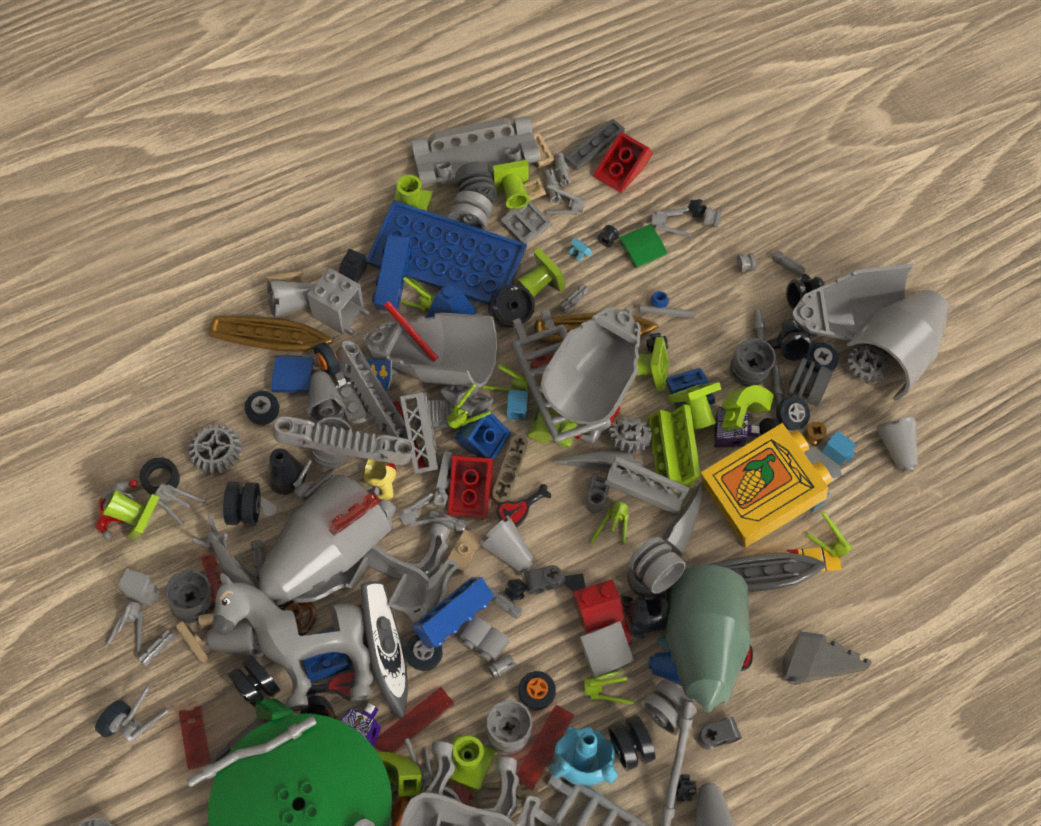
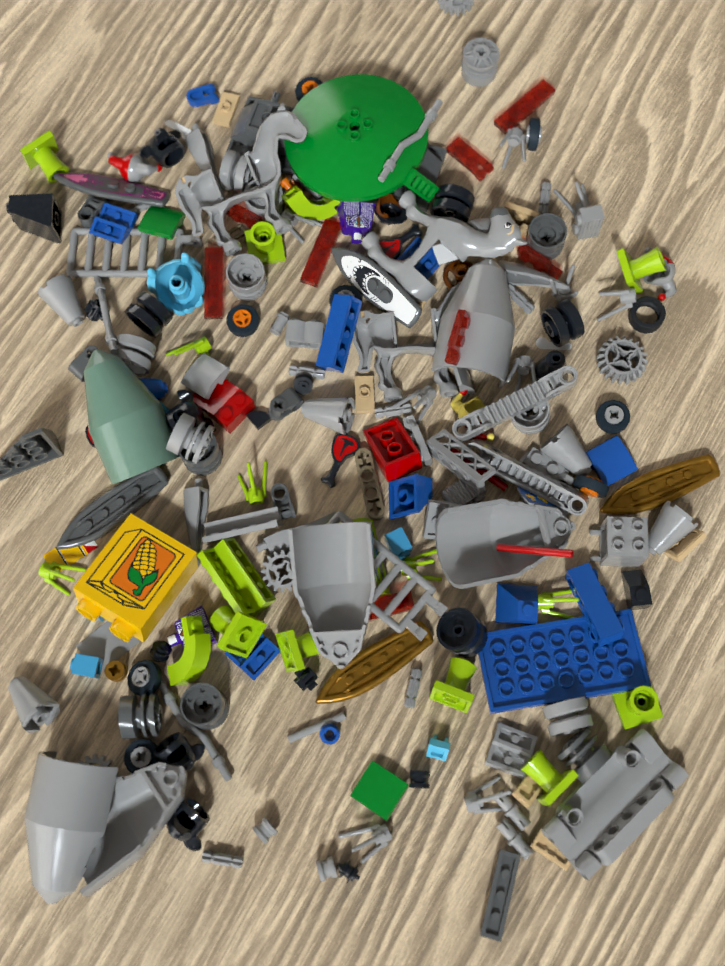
camera: 155 degrees right, 10 degrees up
(93, 764) = (524, 106): none -> clear red plate
(459, 417) = (437, 490): lime plant -> none
(623, 162) = (456, 886): red slope -> none

